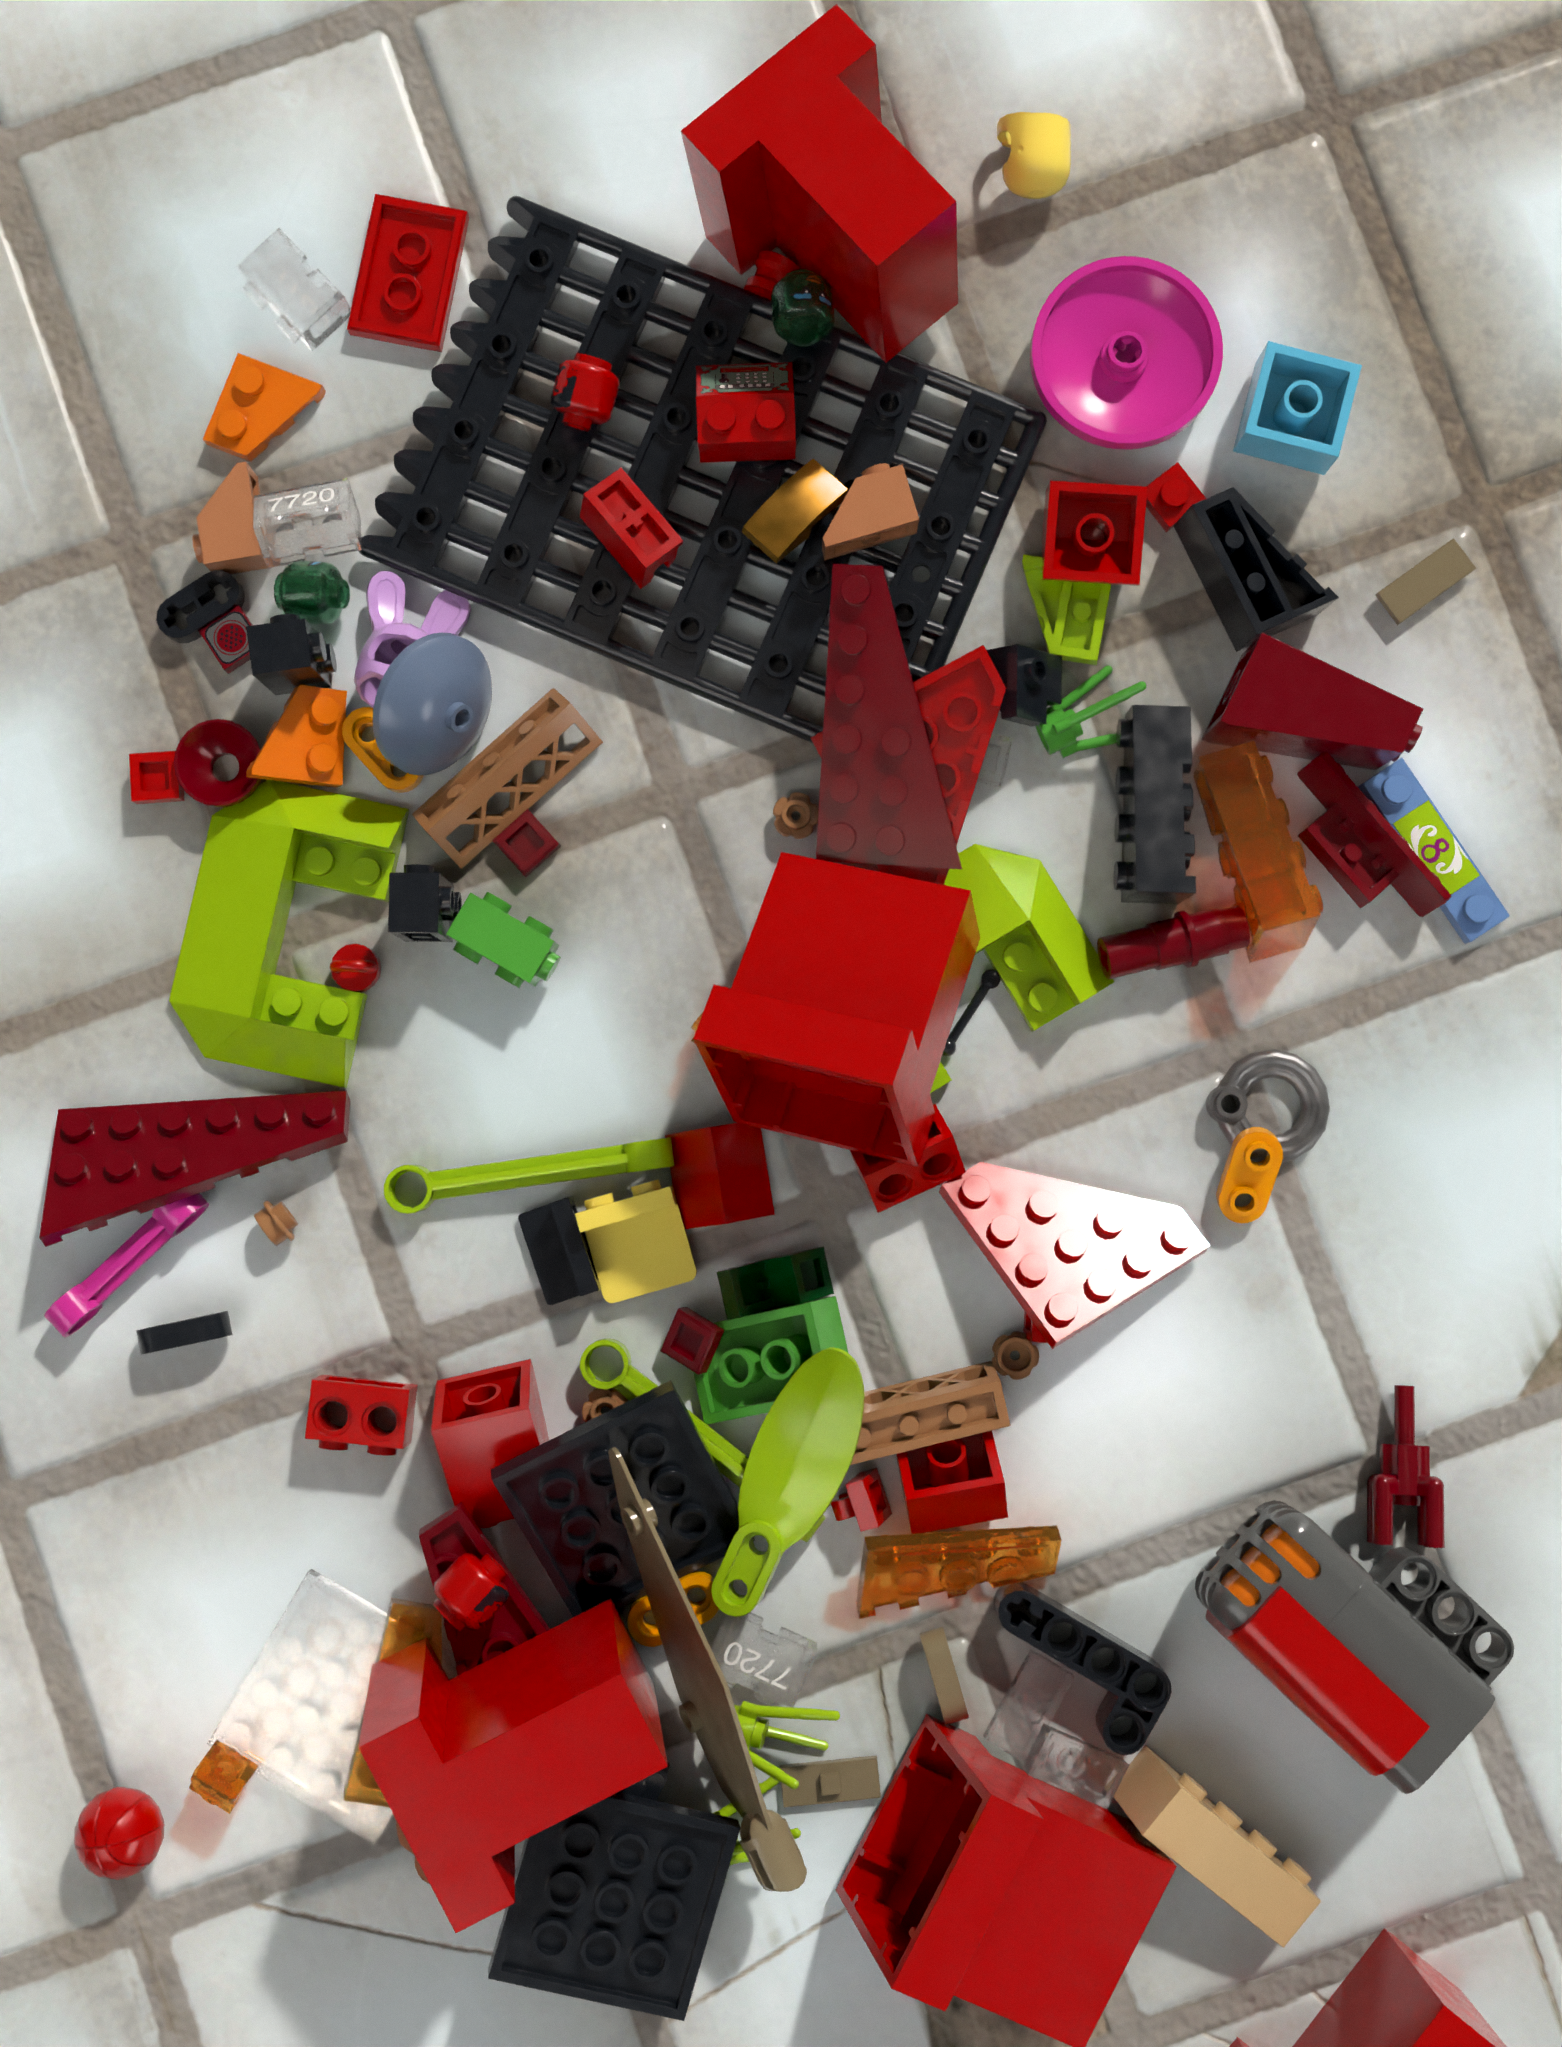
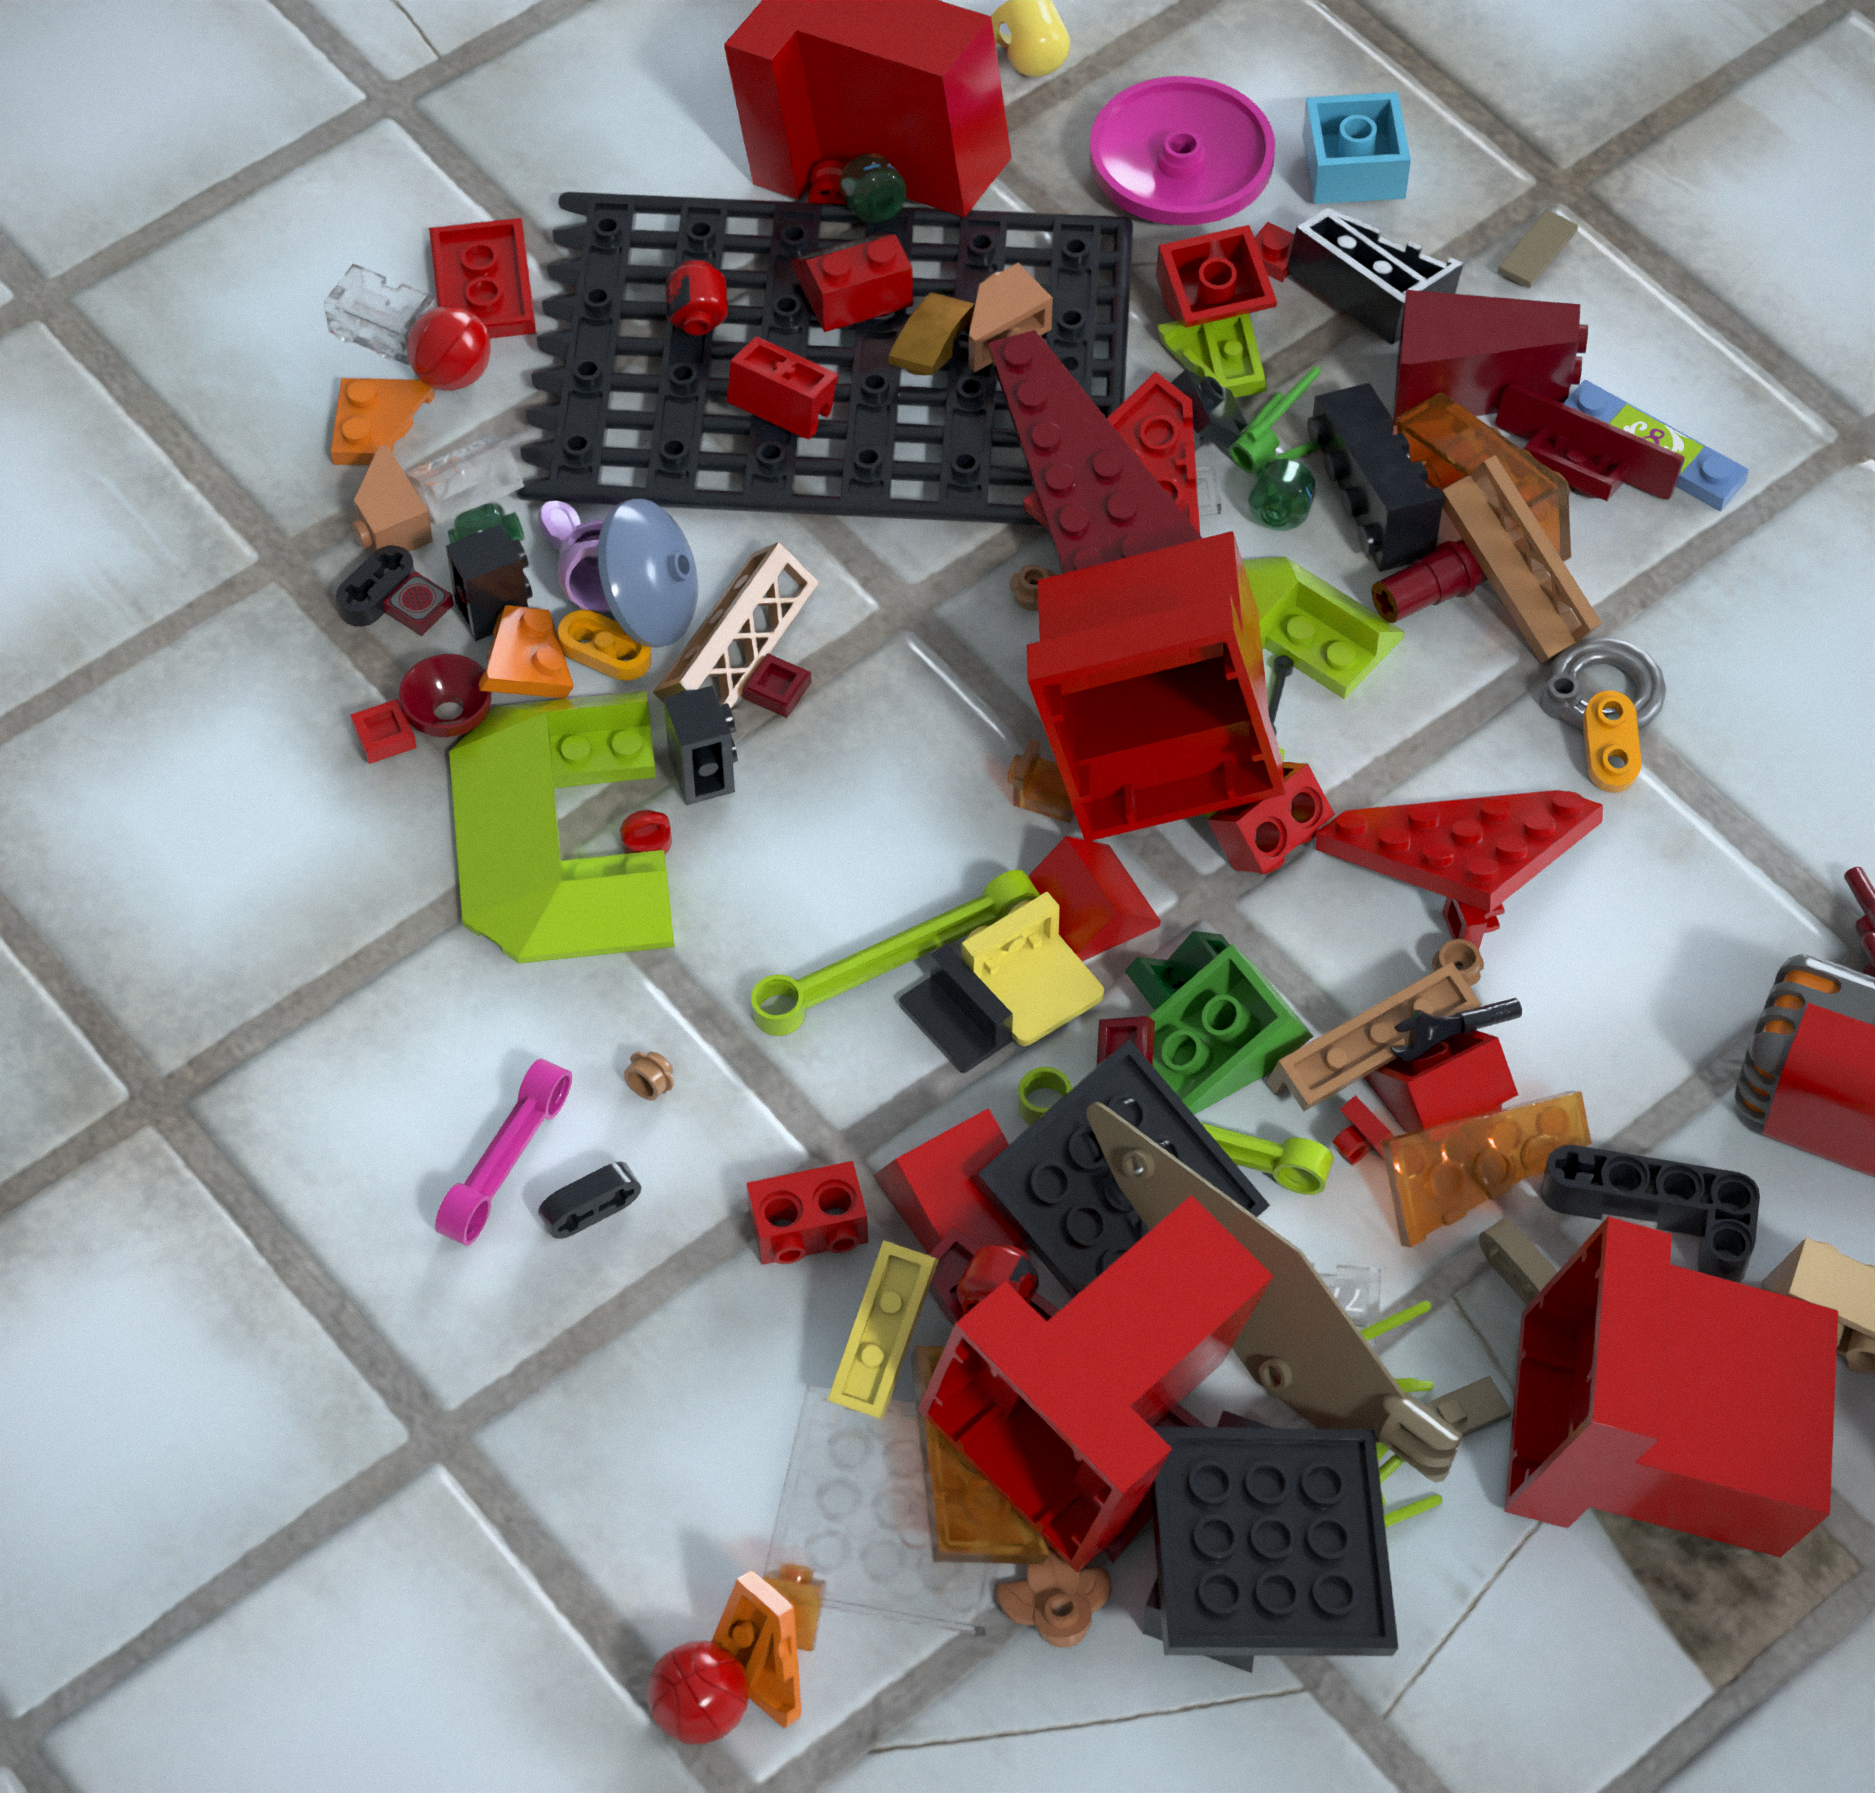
camera: 20 degrees left, 30 degrees down
(167, 1151) = (526, 1029): dark red wing -> none
(179, 1807) = (762, 1636): none -> orange wing
(341, 360) = (448, 348): none -> red piece
(371, 1577) = (883, 1330): none -> light yellow plate
(518, 948) = (791, 756): bright green brick -> none
(792, 1472) = (1282, 1089): lime plant -> none
(986, 1441) = (1430, 1030): none -> black piece
(1060, 797) = (1282, 489): none -> clear green head
(1241, 965) = (1517, 561): none -> medium nougat fence

